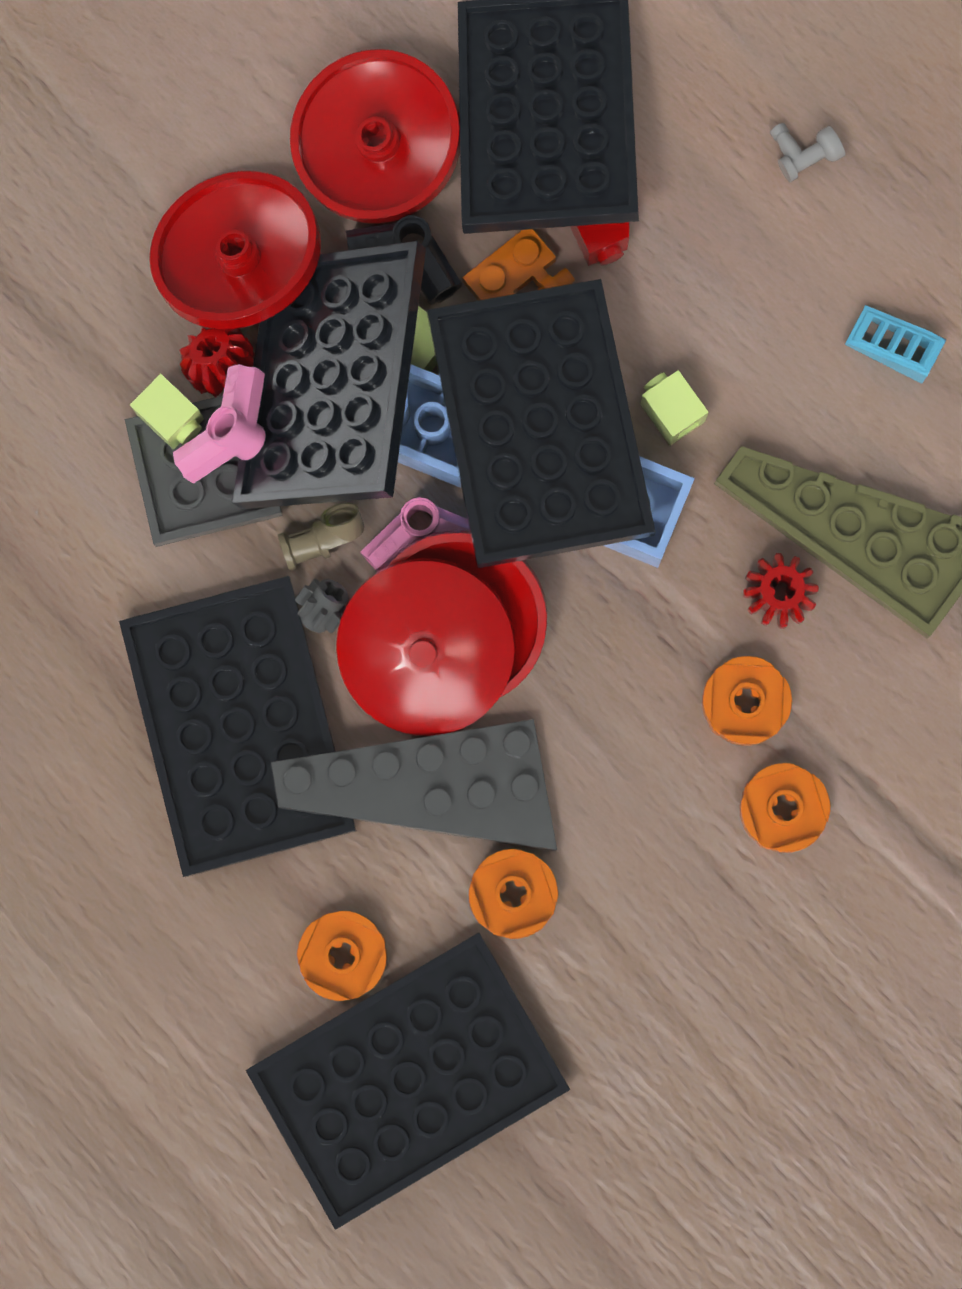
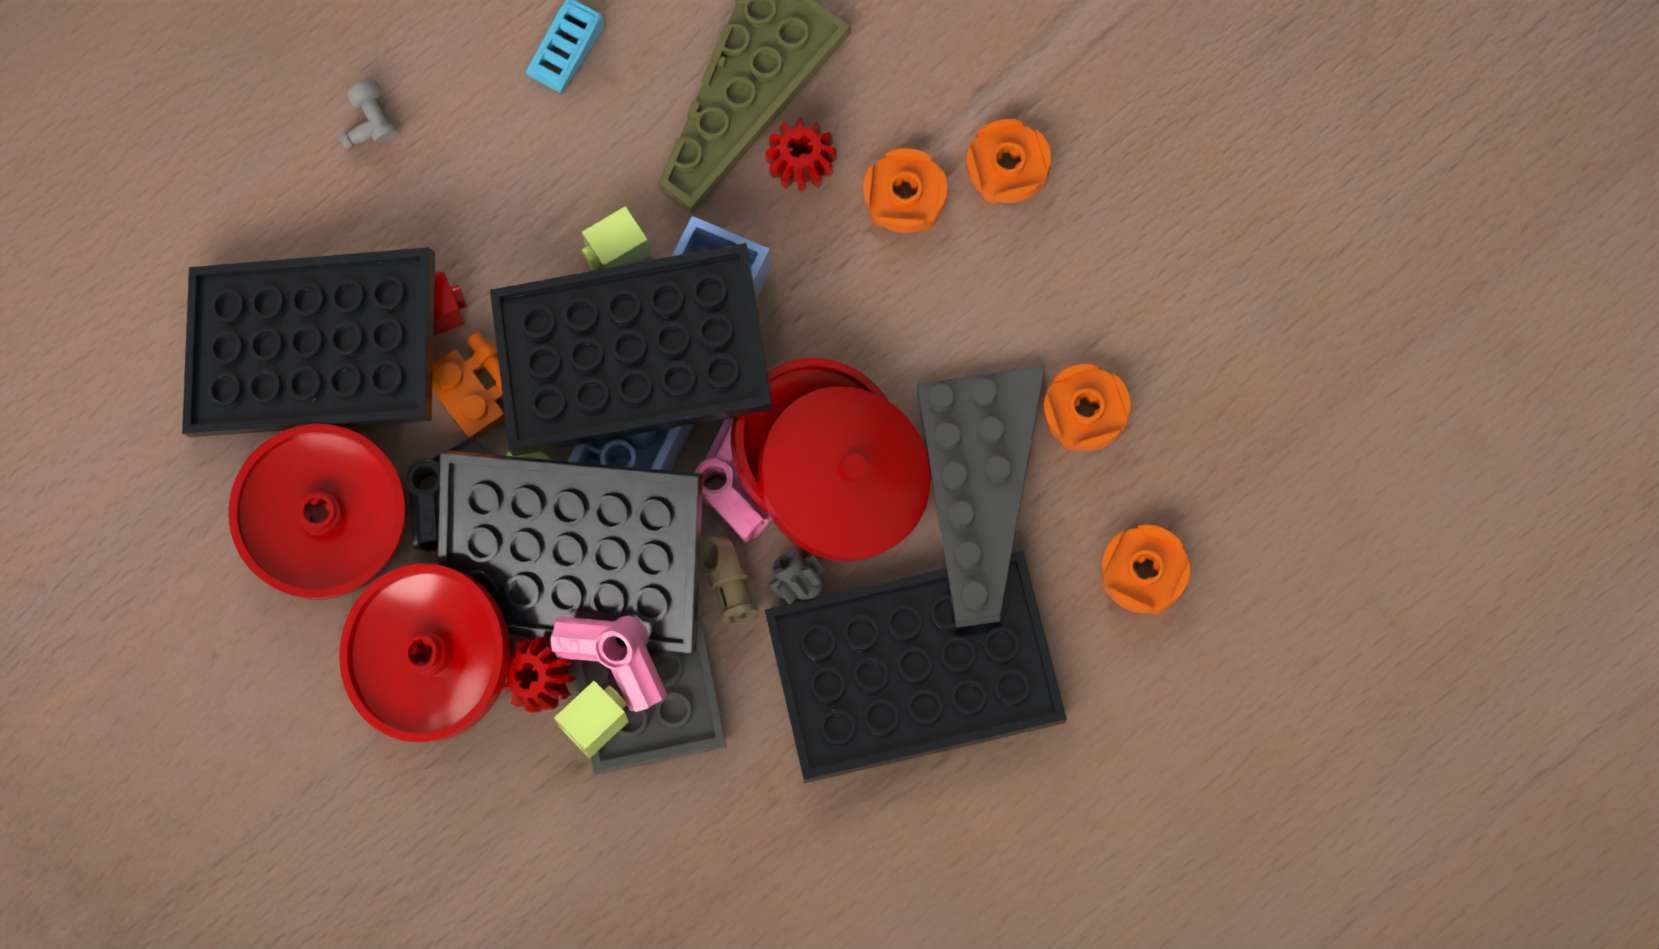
camera: 90 degrees left, 10 degrees down
(407, 1080) = (1266, 511): black plate -> none

